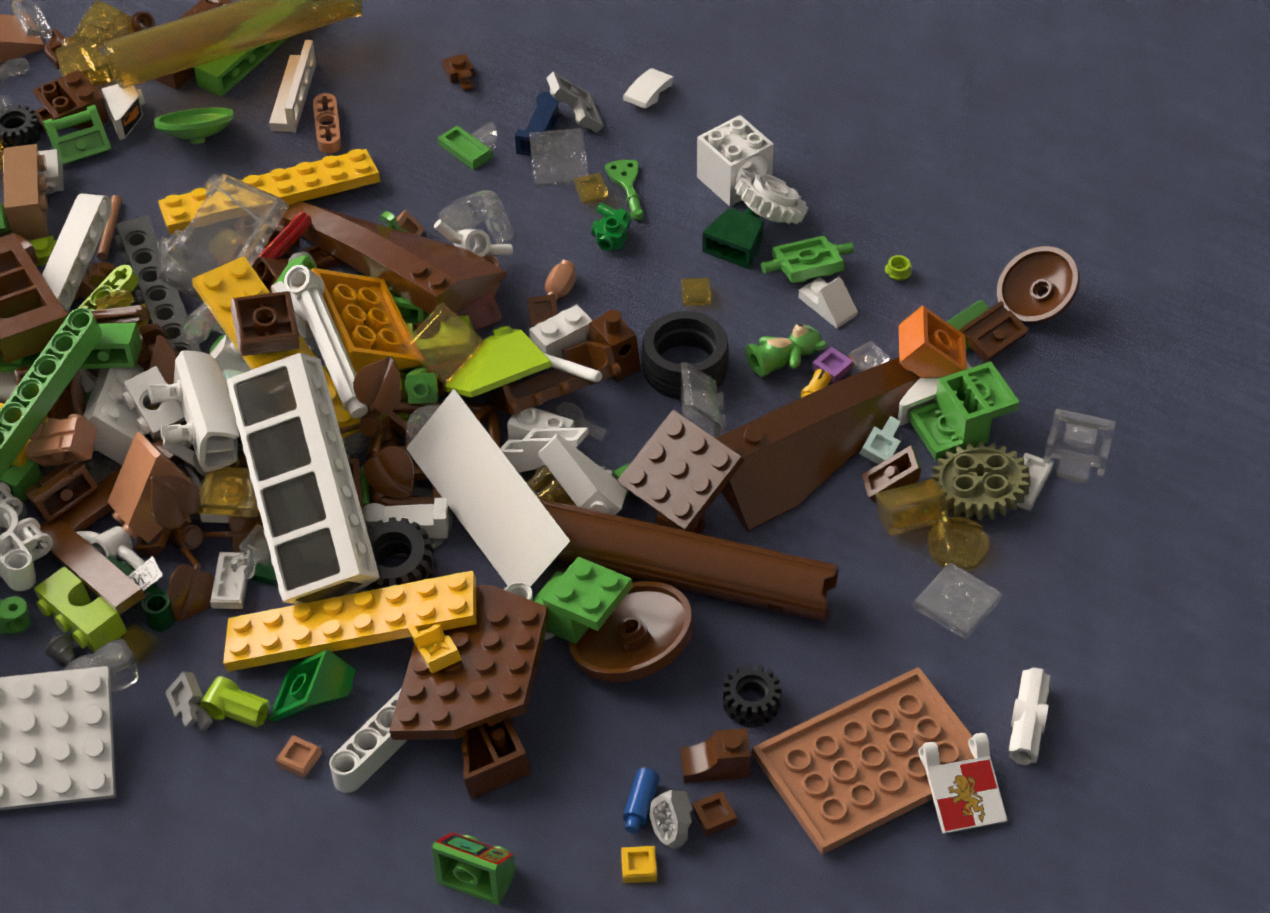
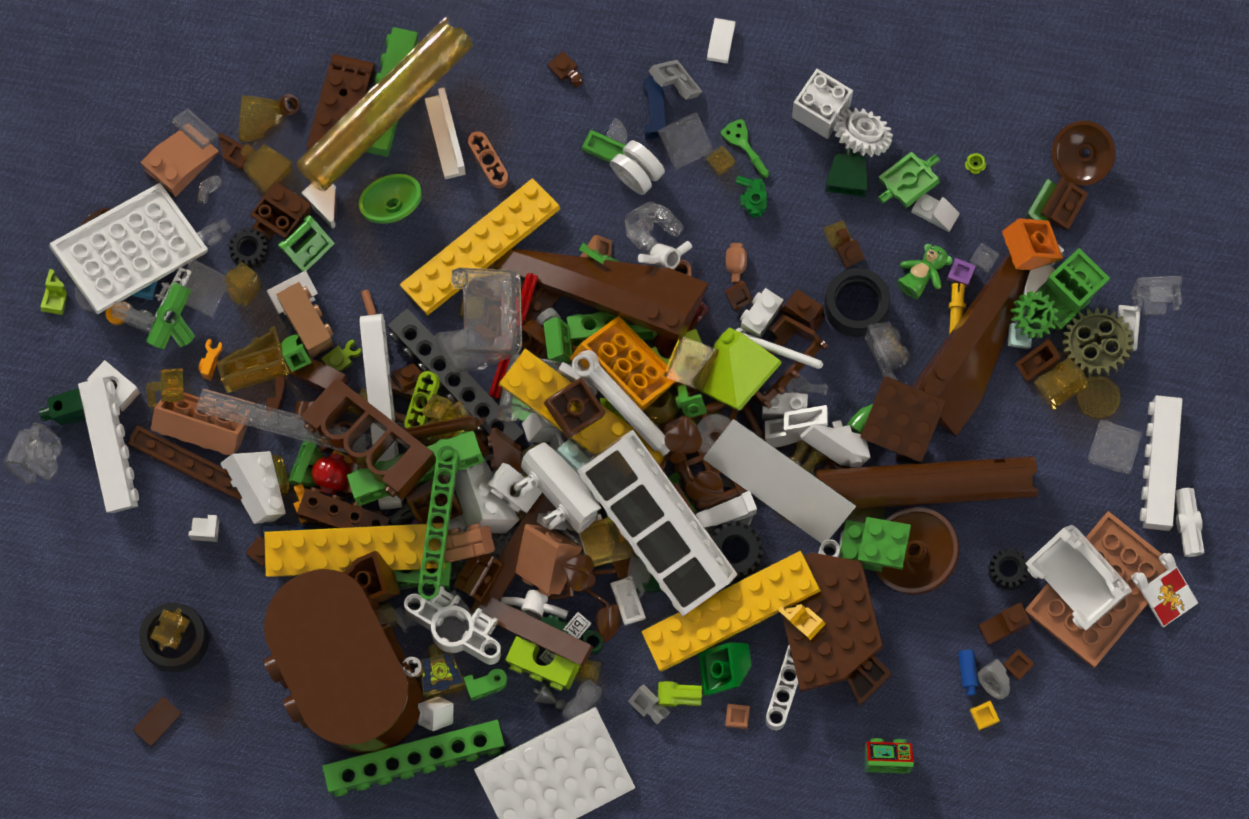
camera: 20 degrees left, 25 degrees up
(487, 159) = (637, 167): none -> white wheel
(701, 301) = (849, 251): none -> reddish brown plate
(841, 719) = (1079, 576): none -> white windscreen
(905, 421) = (1042, 320): none -> bright green gear
(1015, 638) = (1162, 463): none -> white brick

